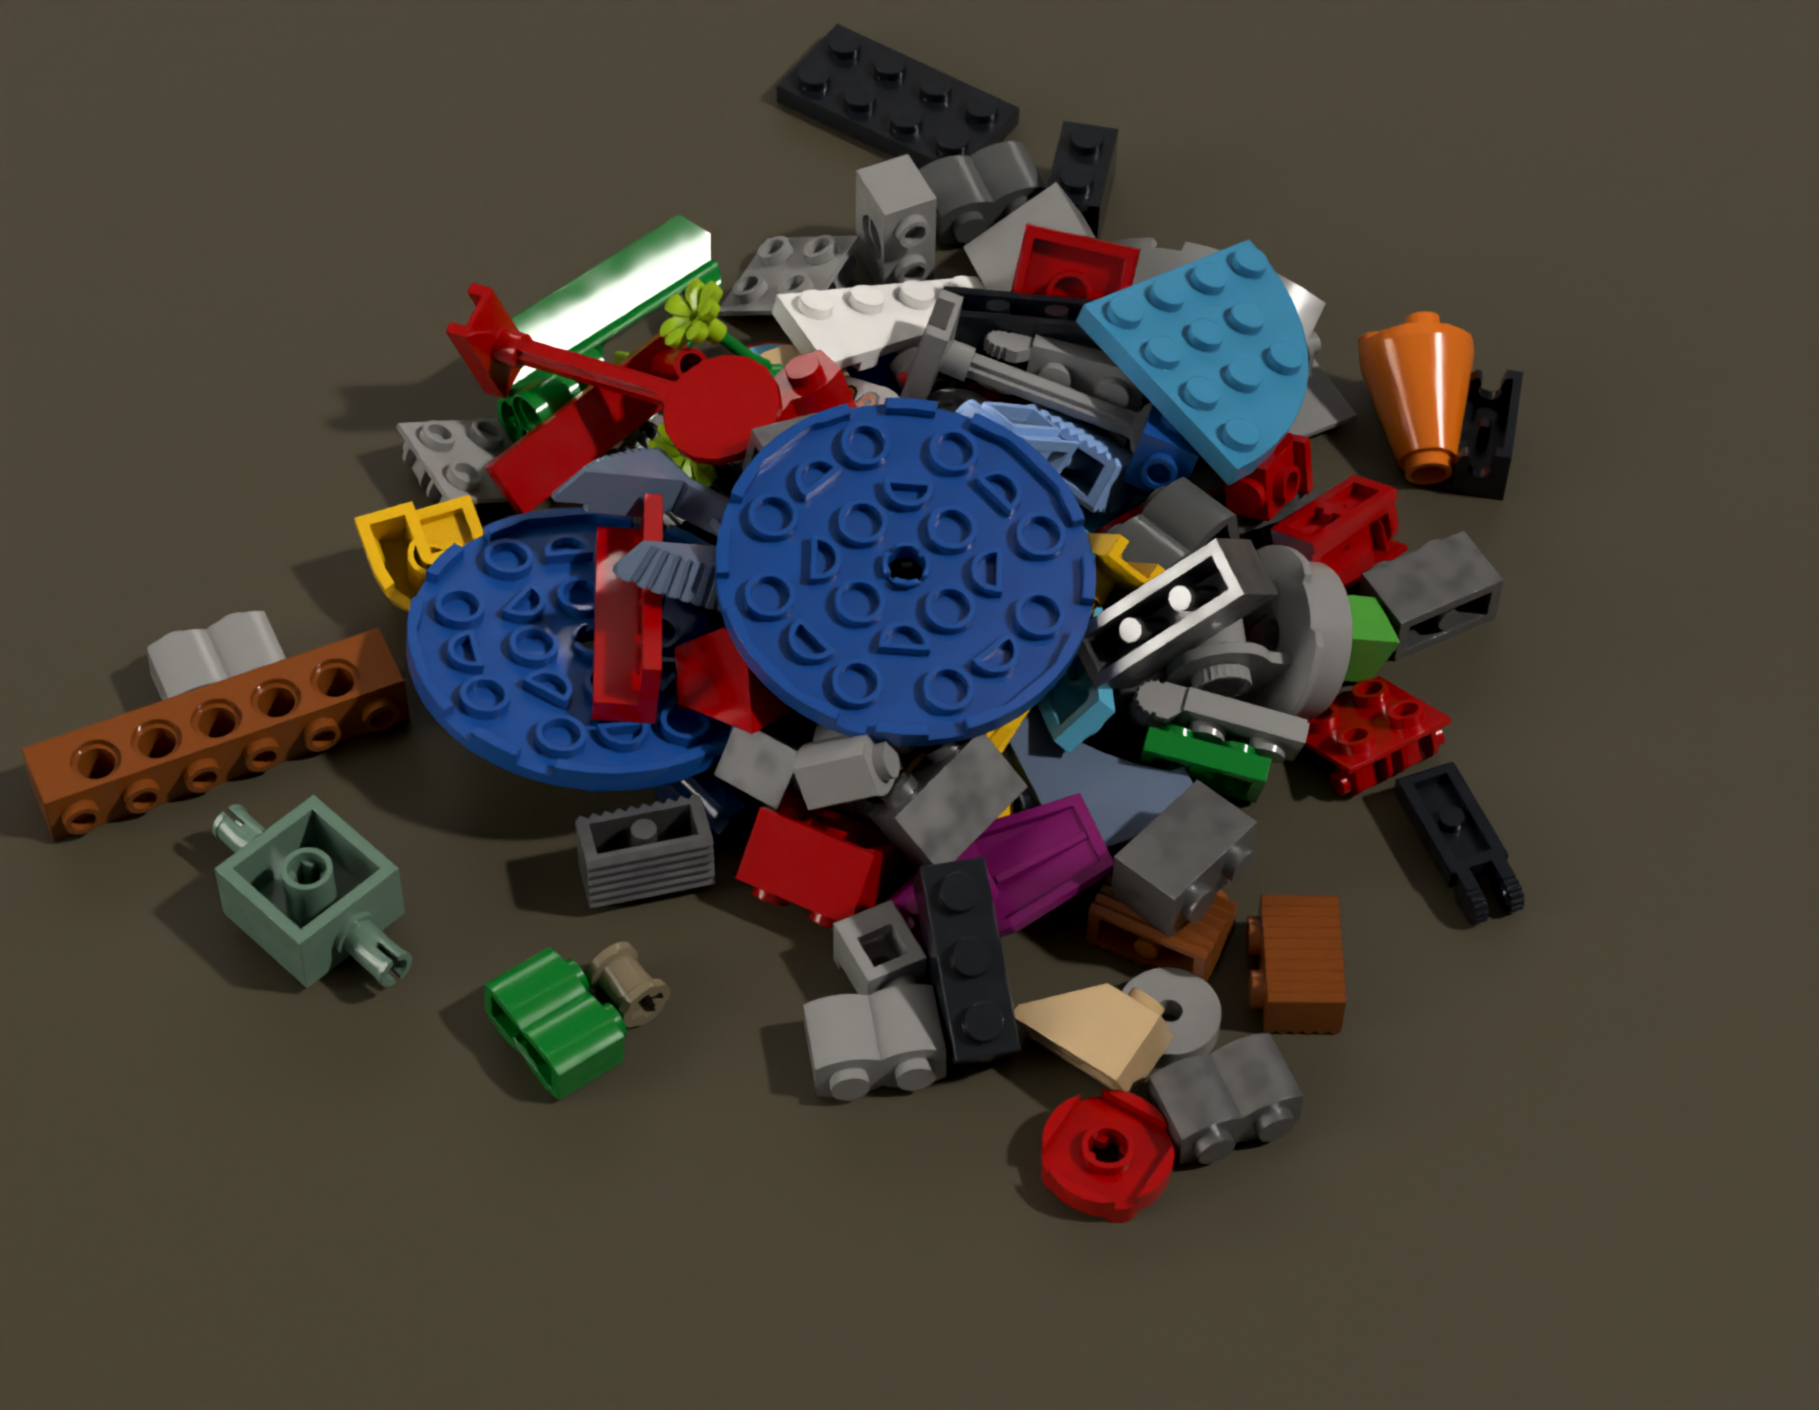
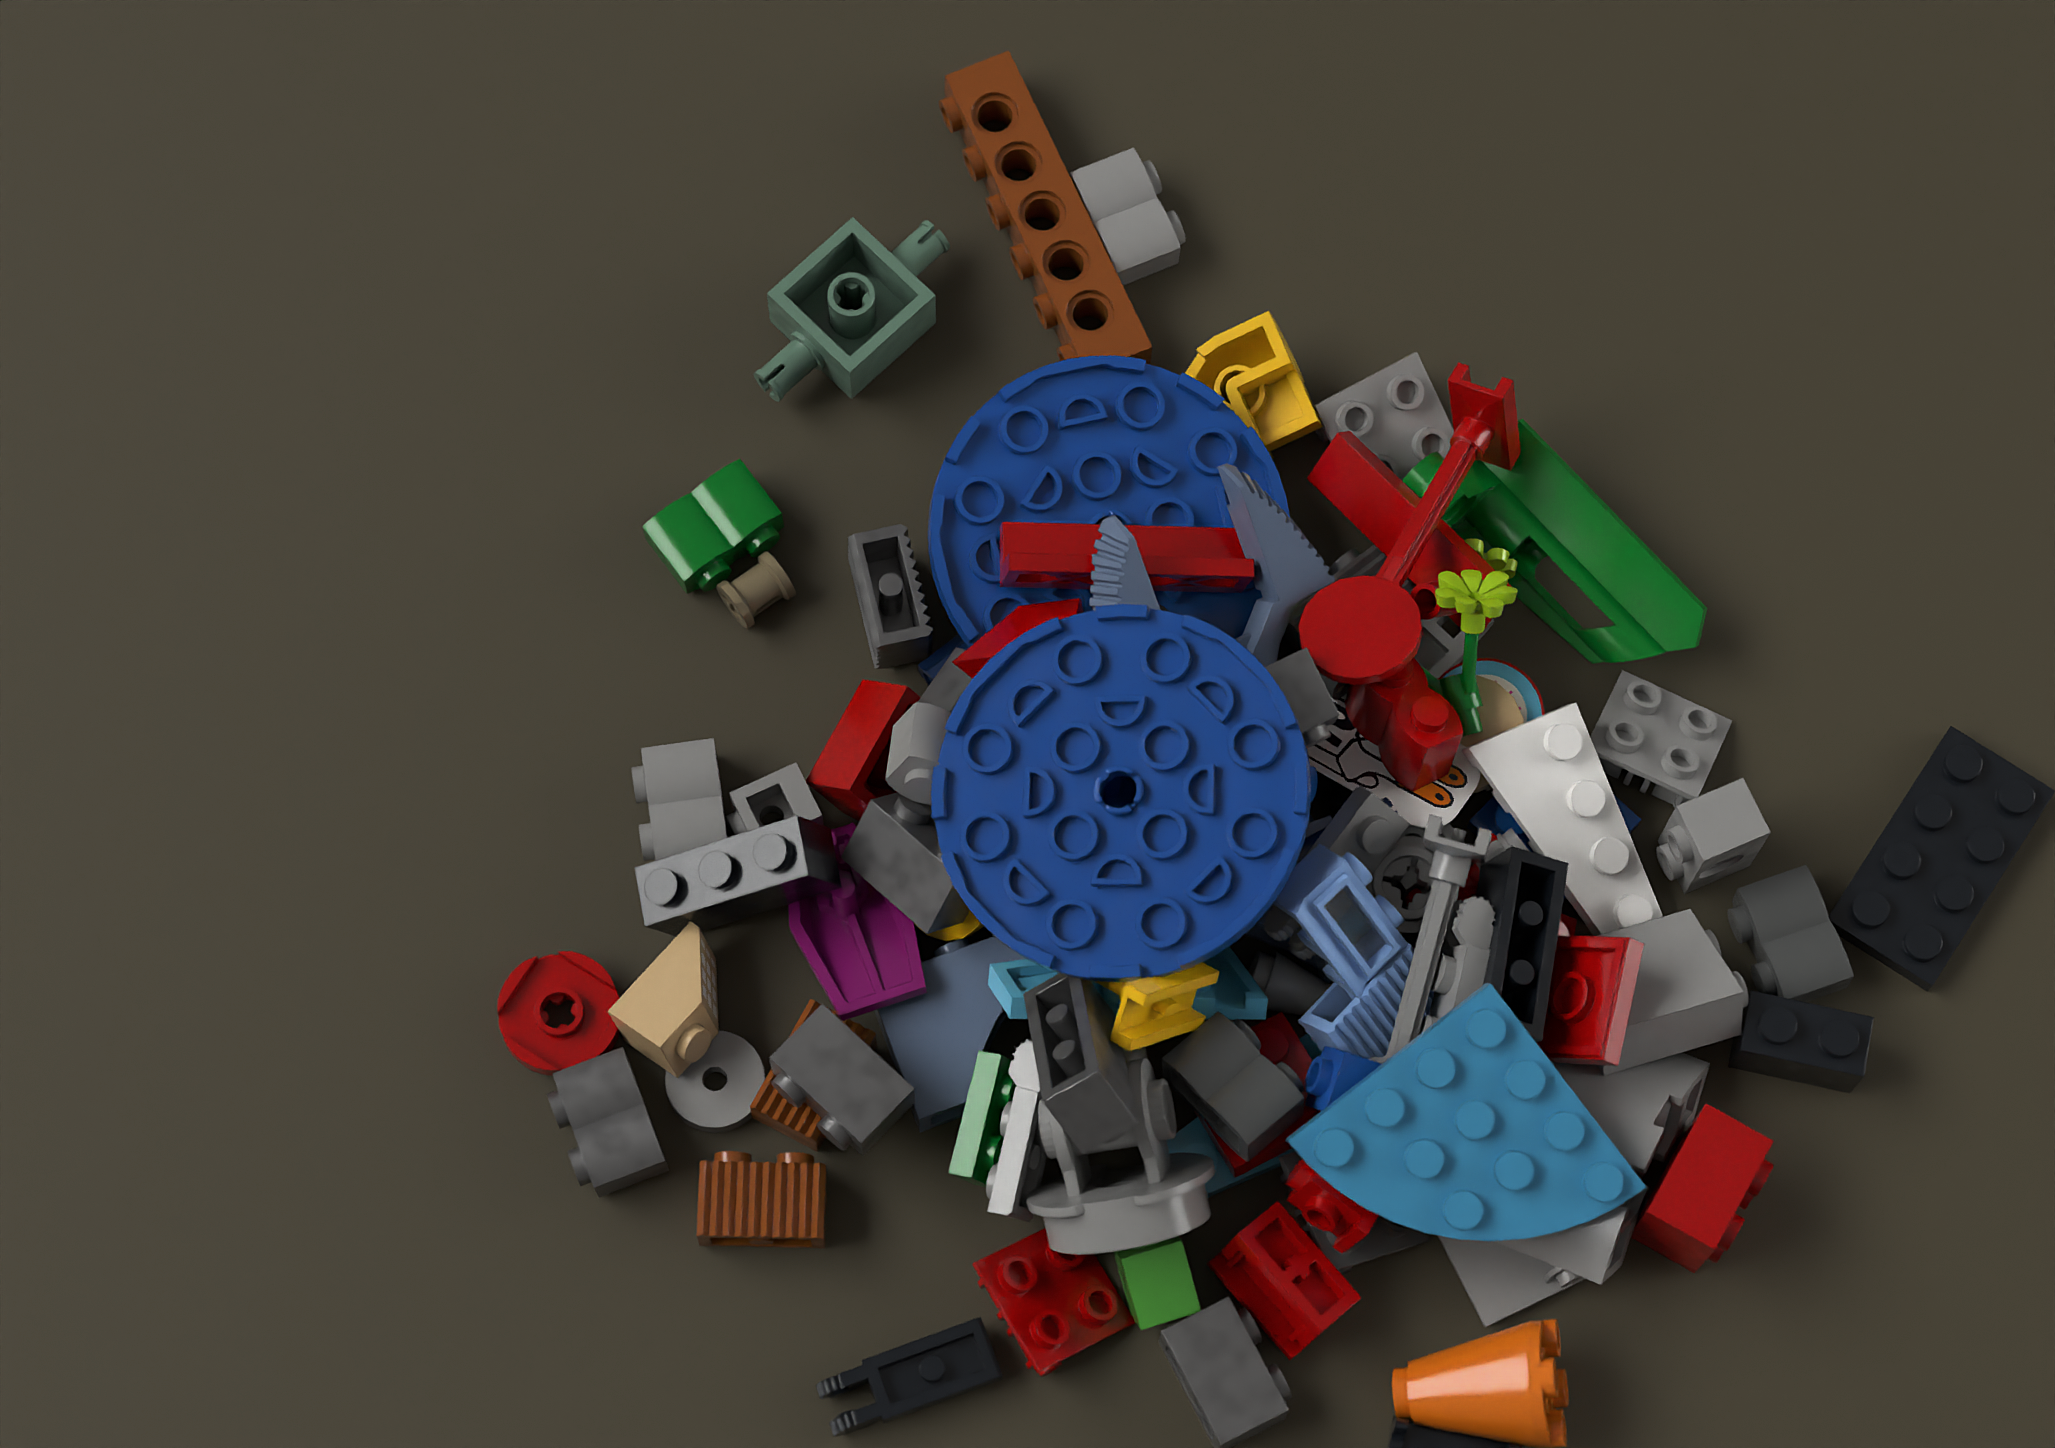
camera: 90 degrees right, 20 degrees up
(1225, 211) = (1704, 1183): none -> red brick

